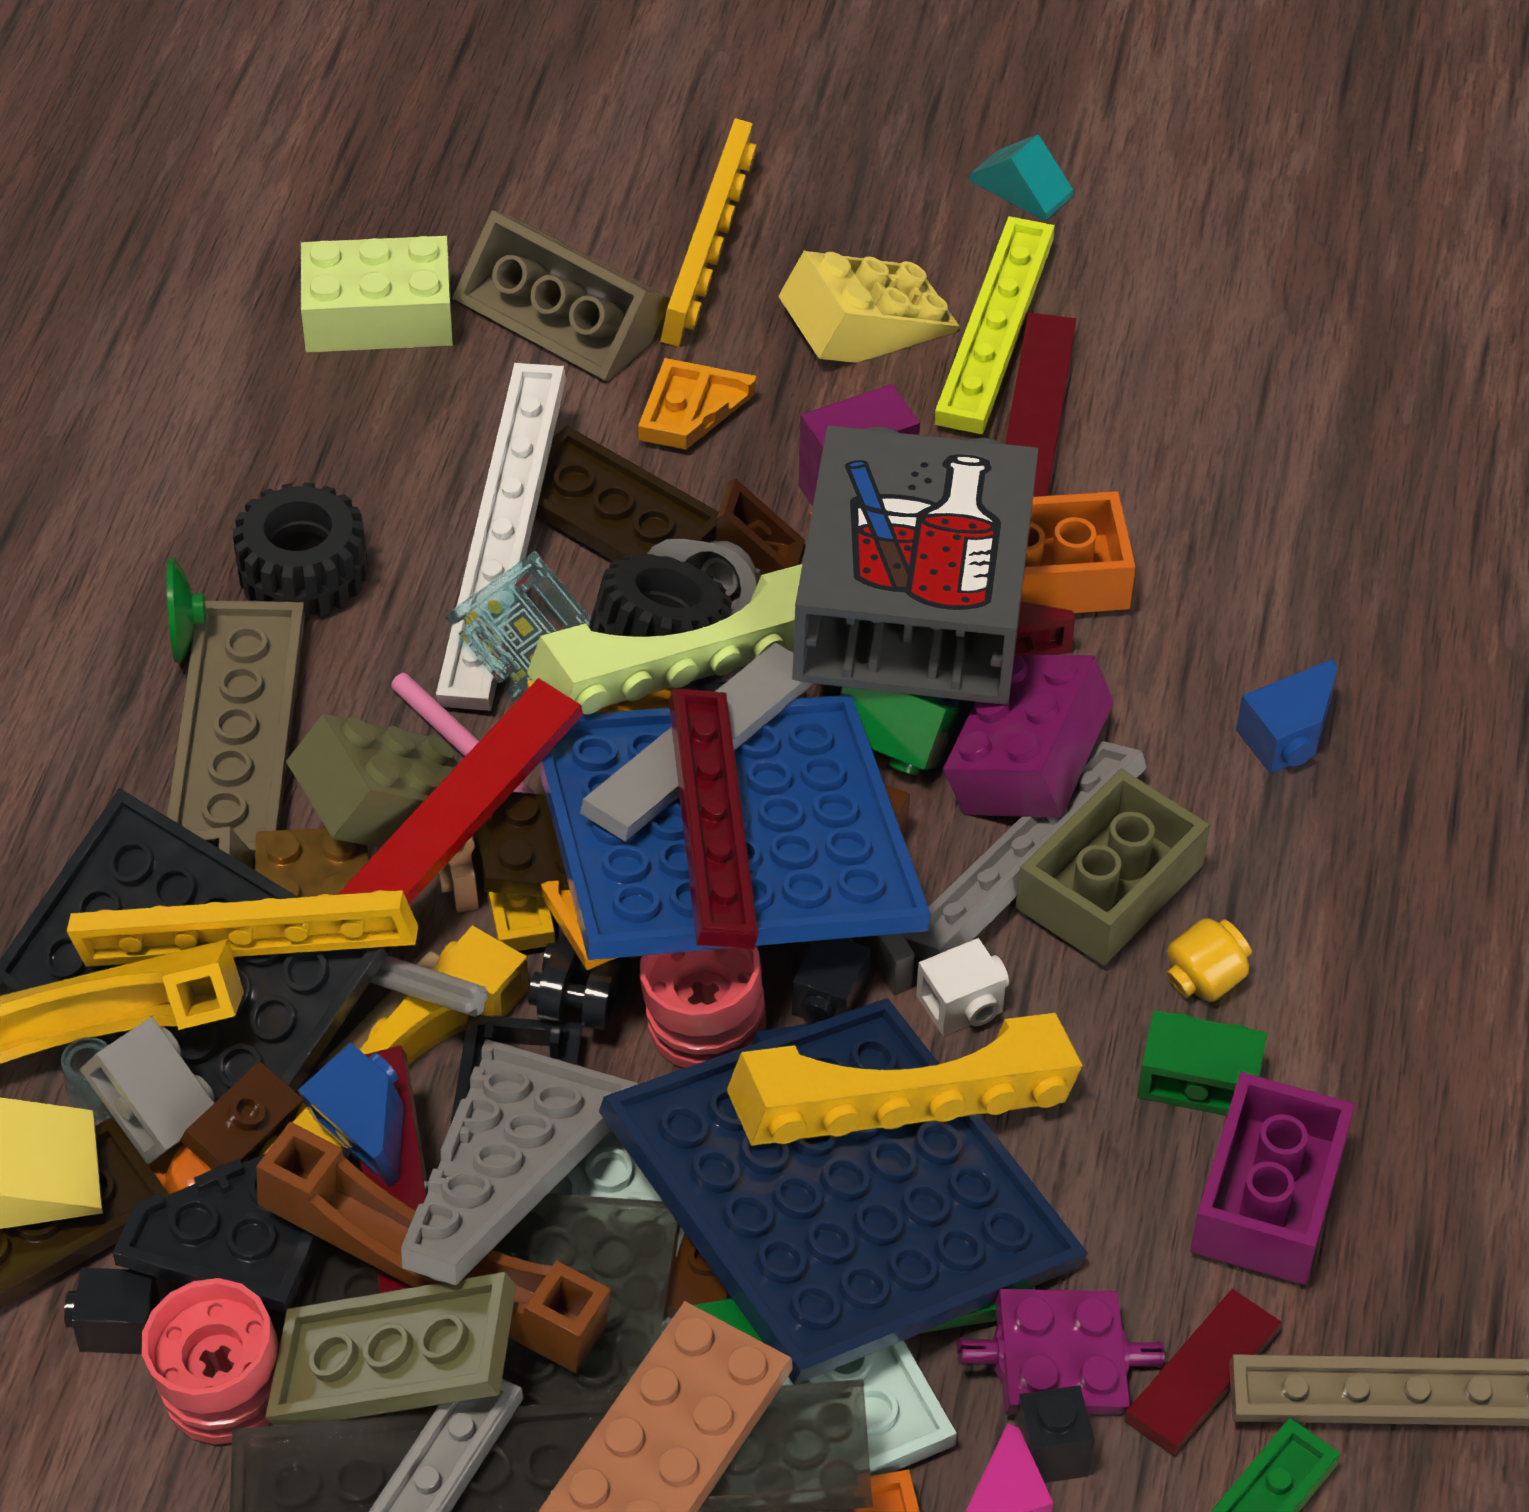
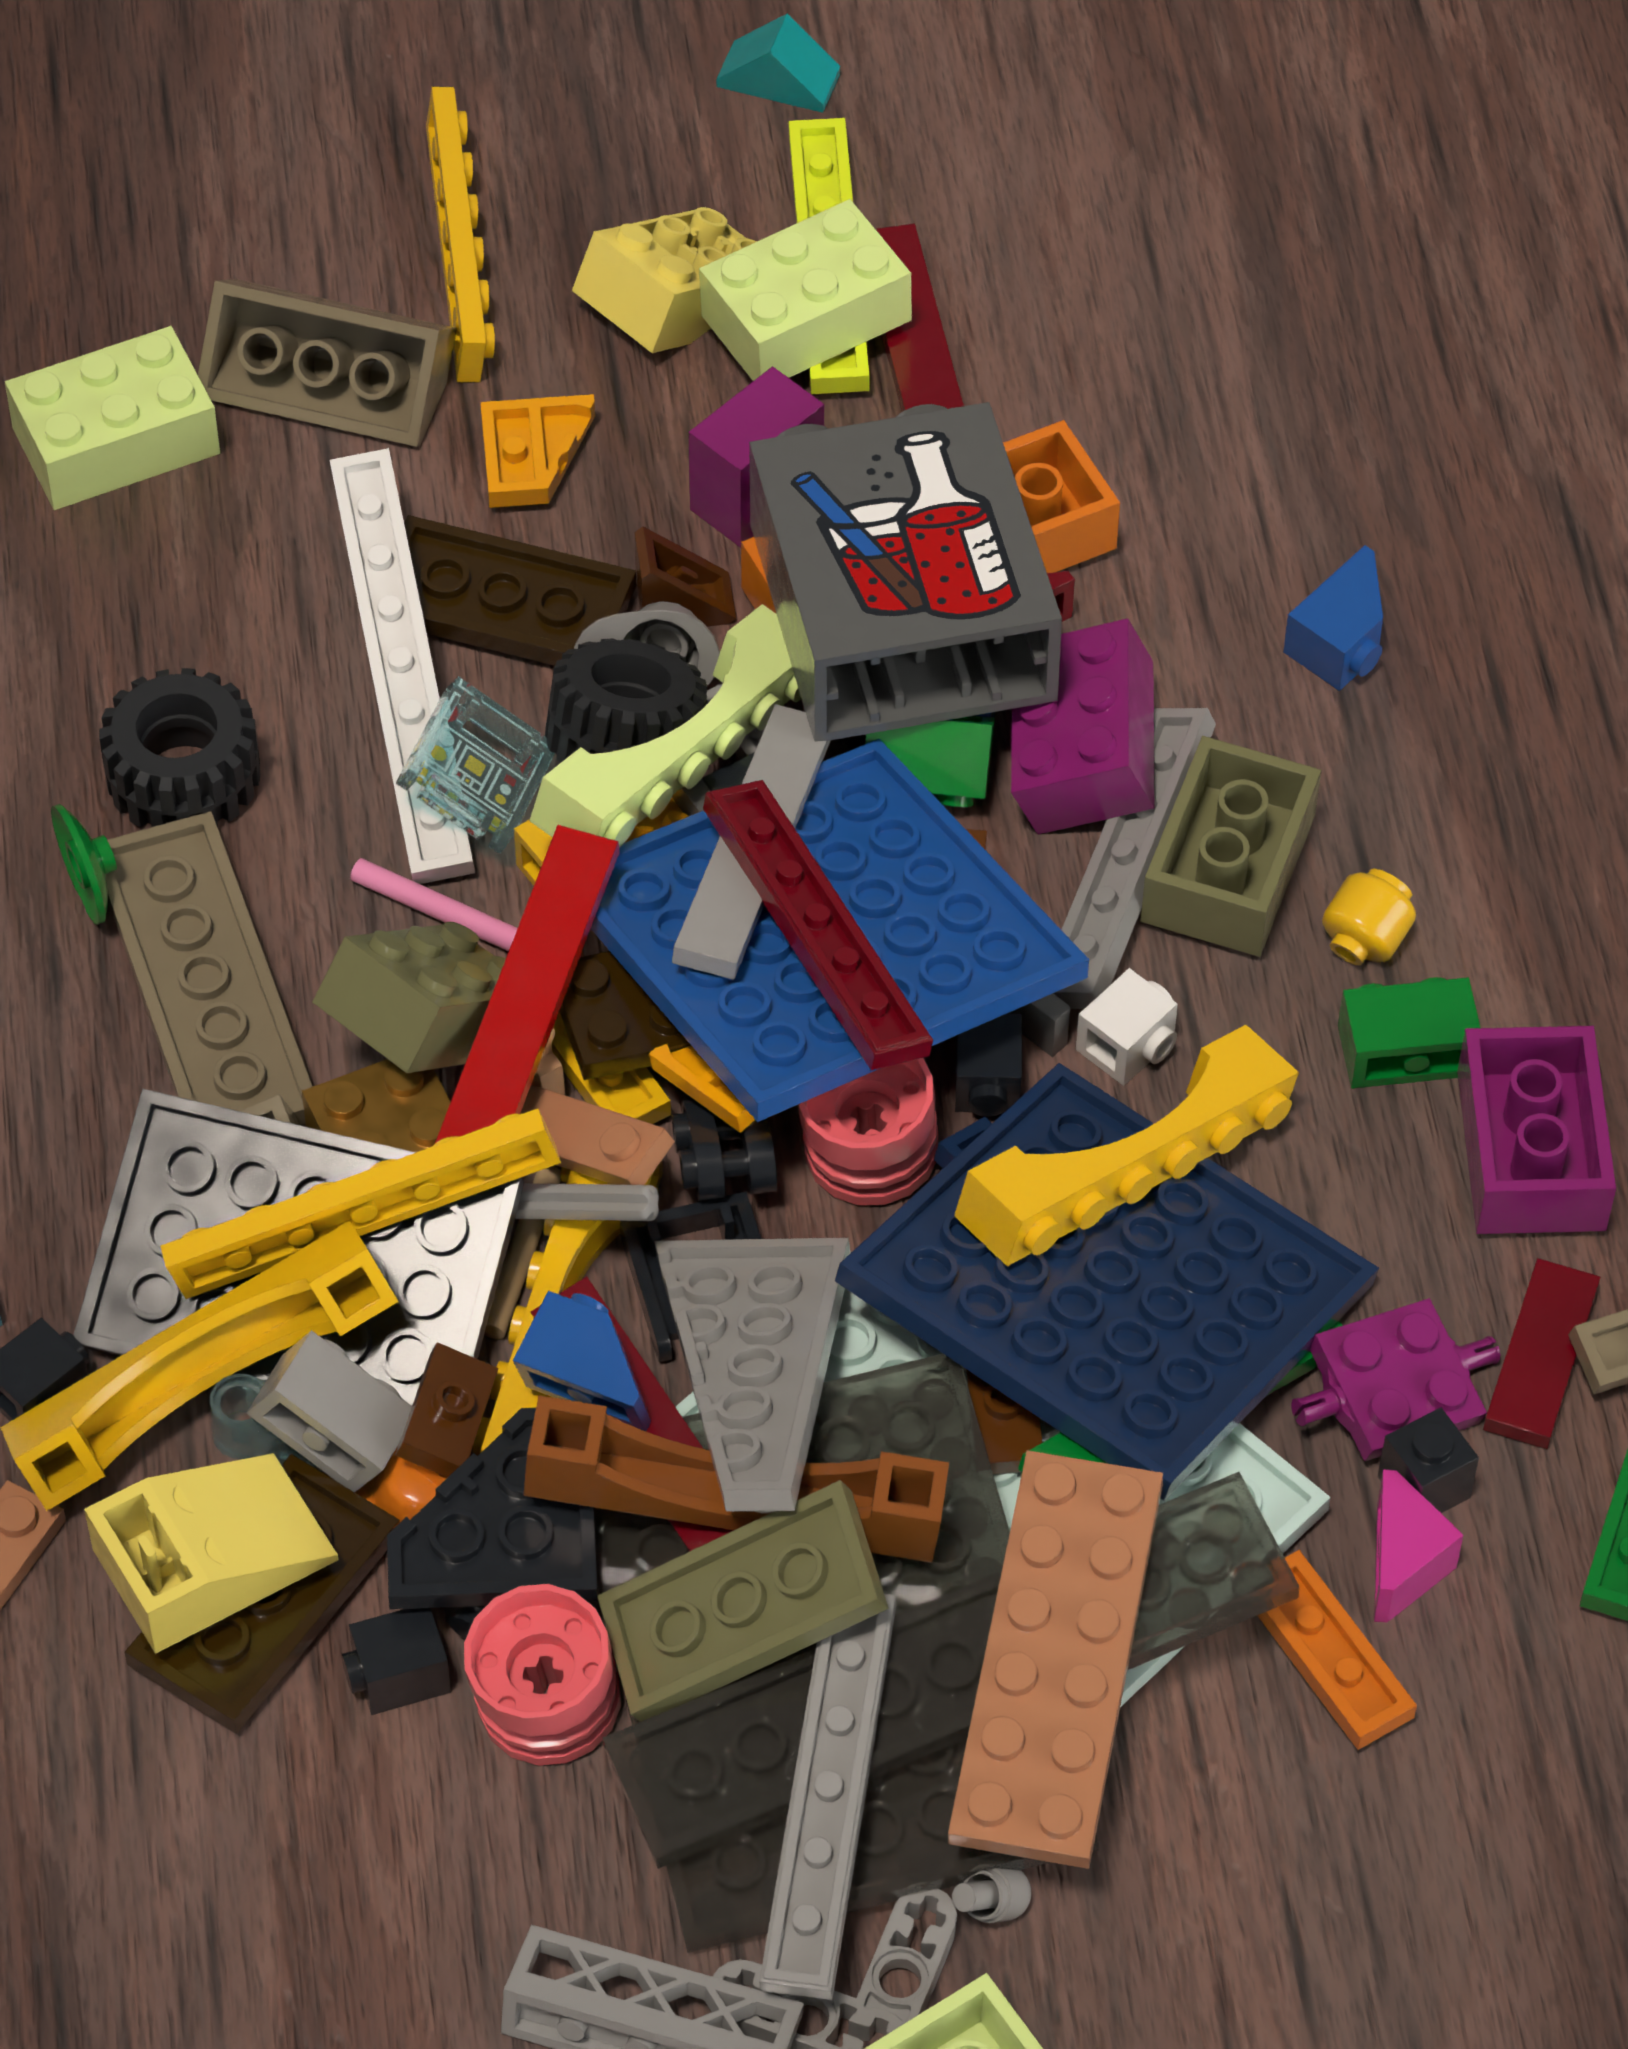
camera: 20 degrees left, 5 degrees up
(462, 935) = (599, 1139): none -> nougat plate
(955, 342) = (806, 293): none -> yellowish green brick

